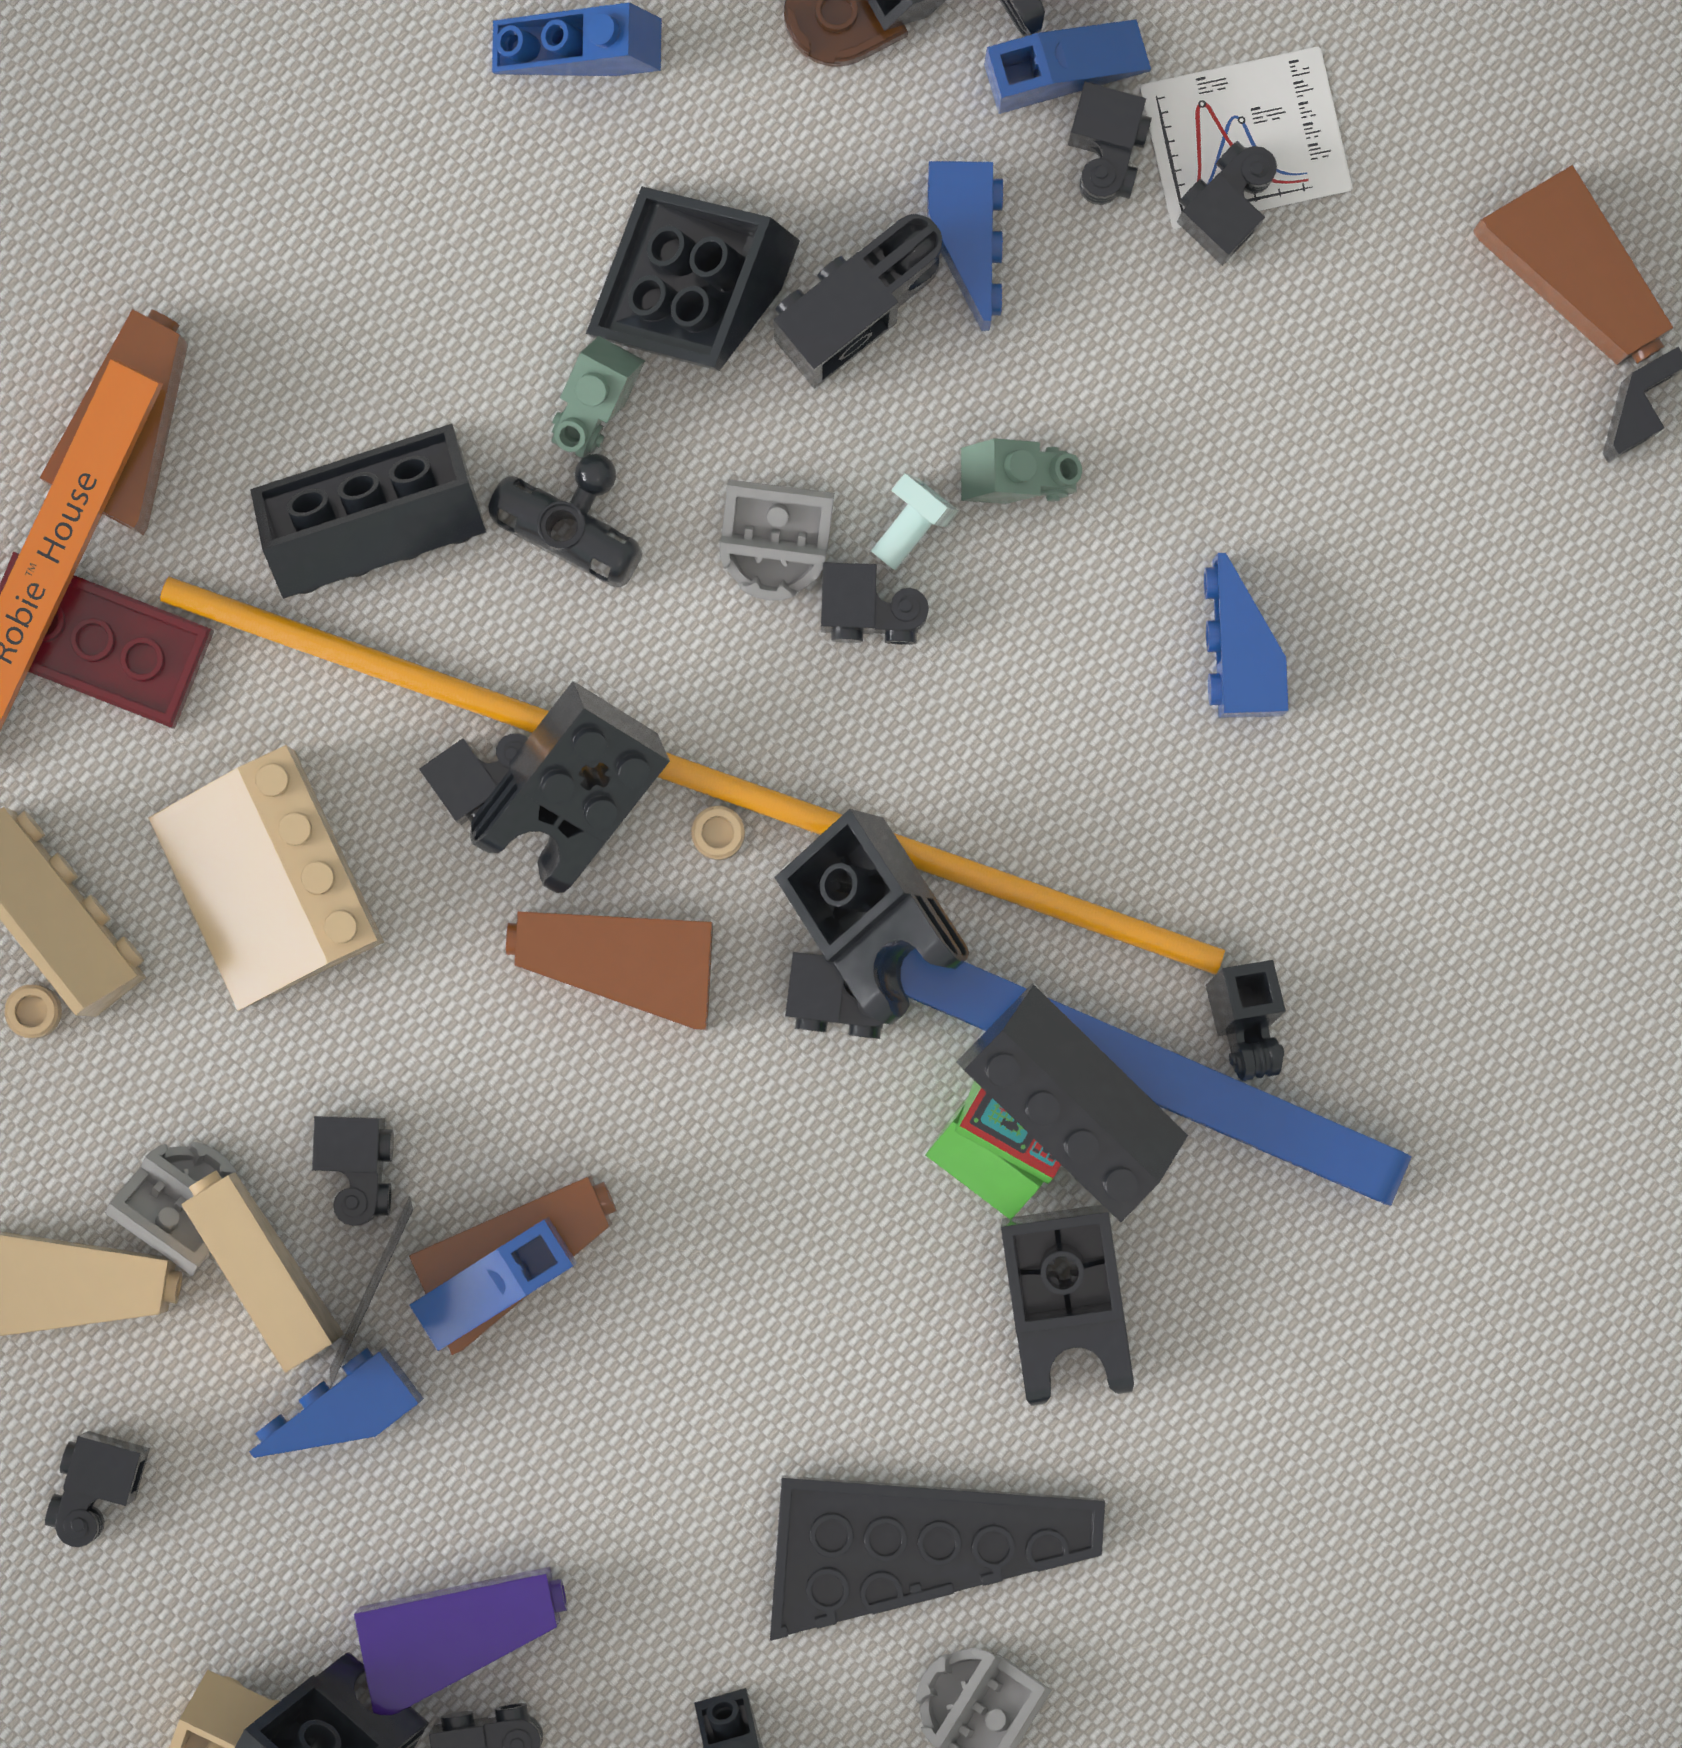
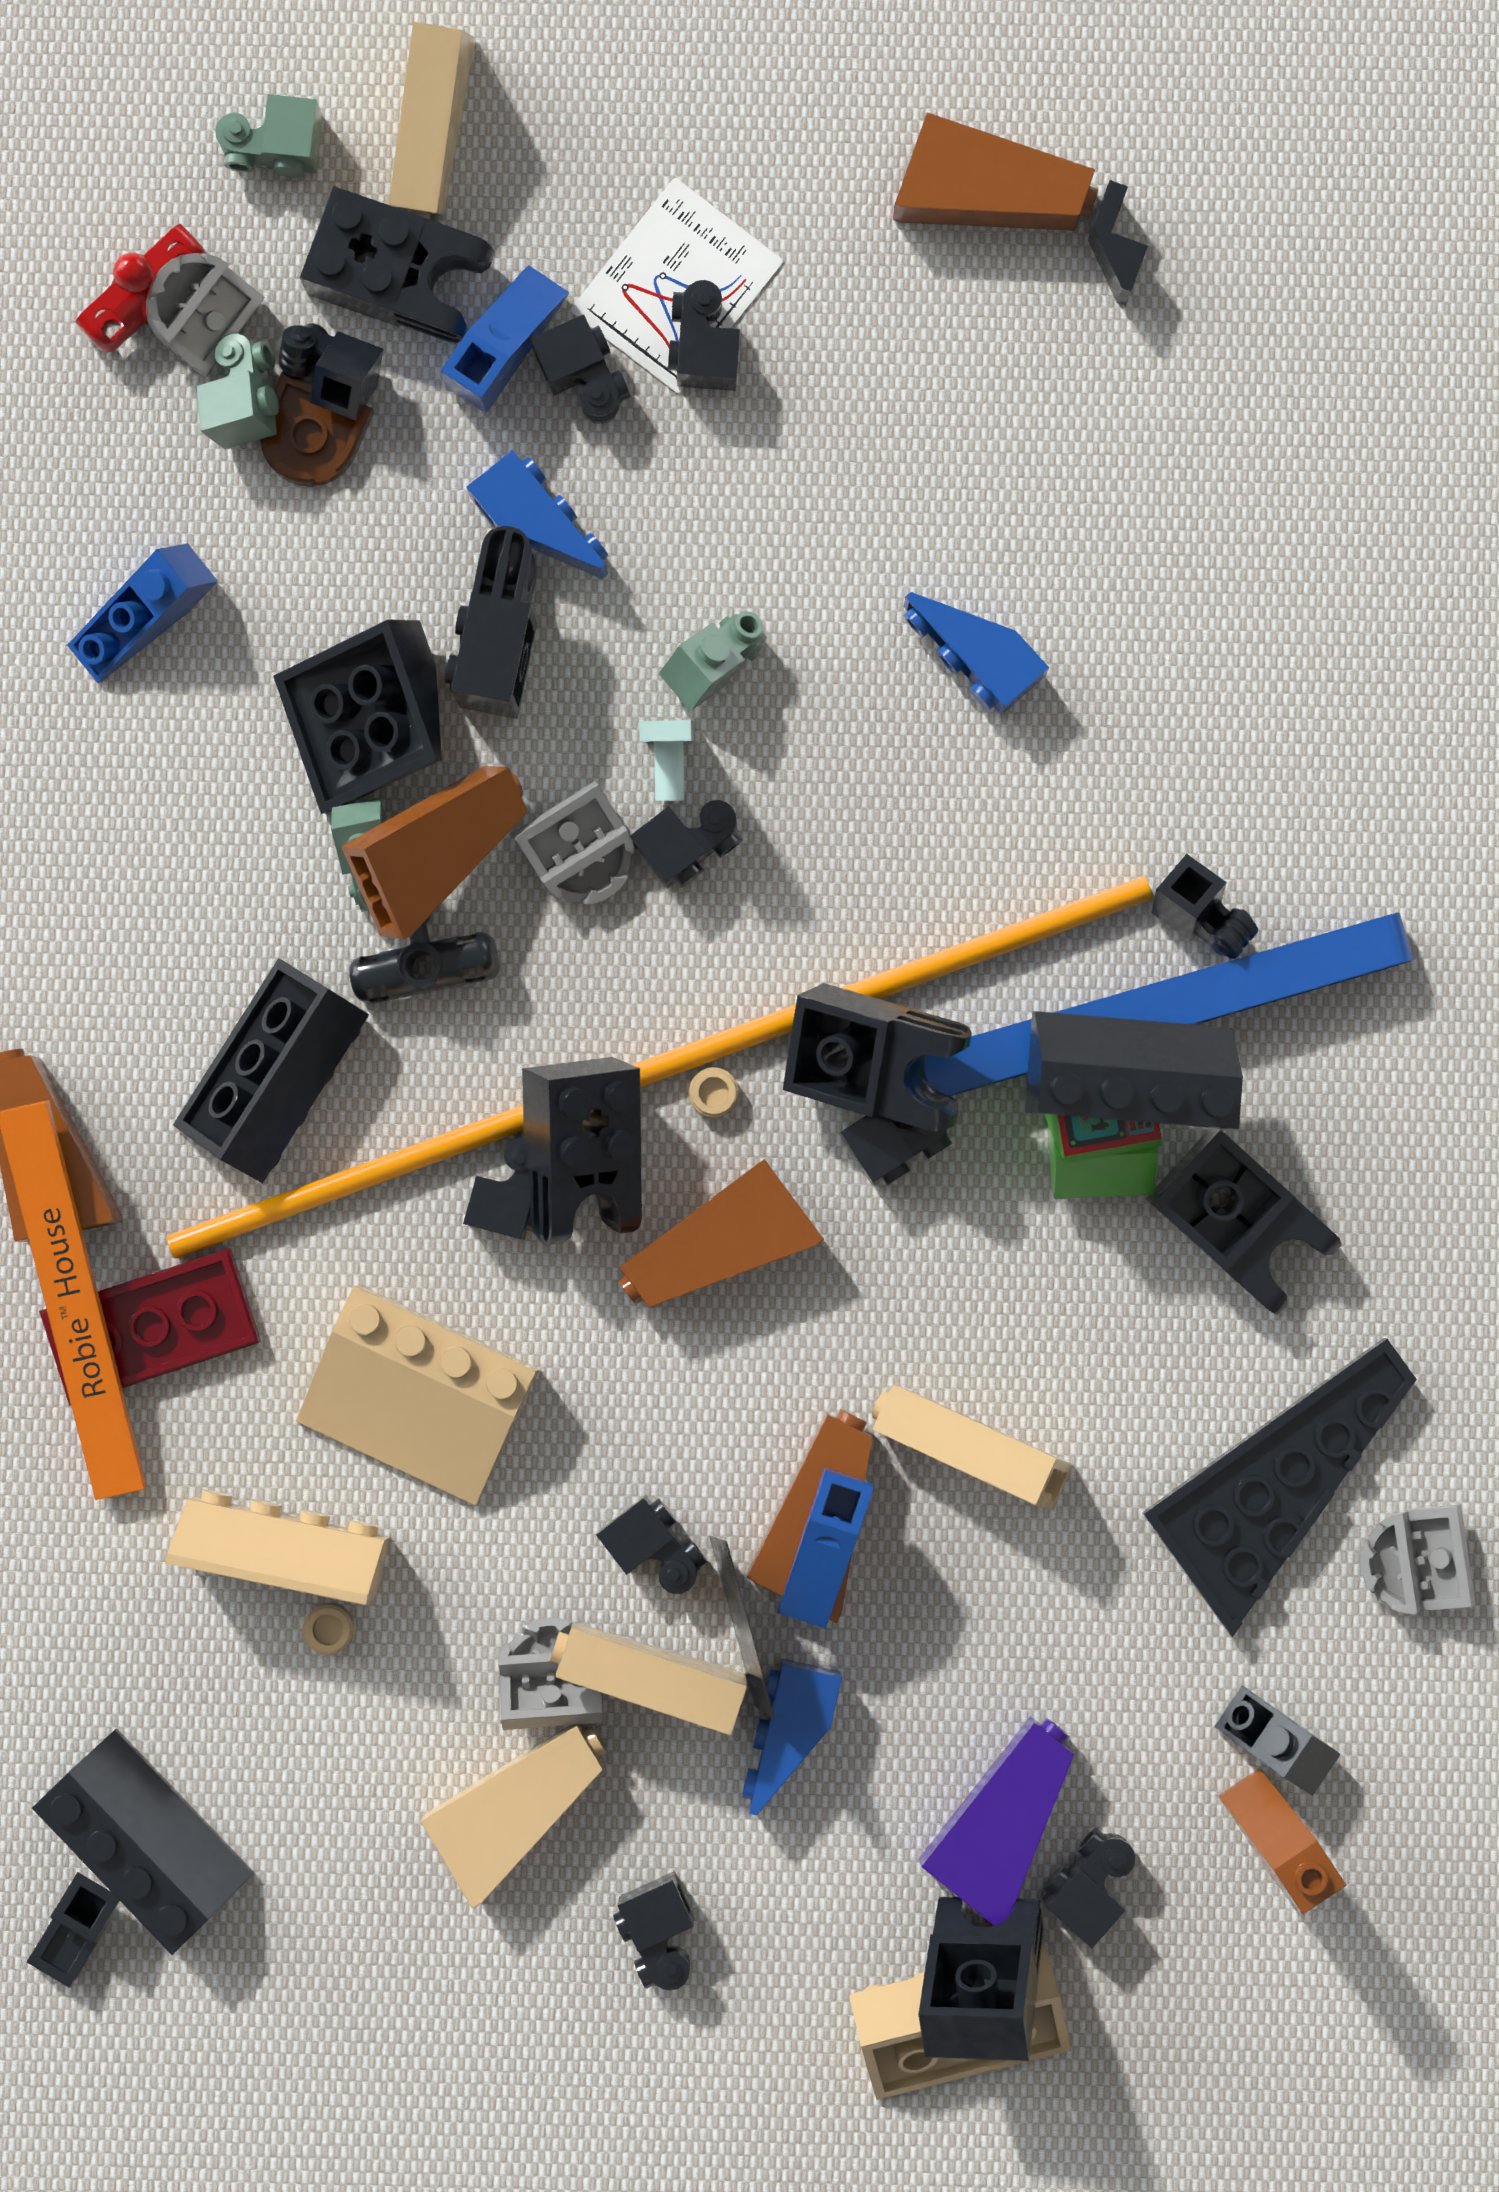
camera: 30 degrees left, 0 degrees up
(650, 436) = (431, 847): none -> dark orange slope
(685, 1303) = (971, 1446): none -> tan slope

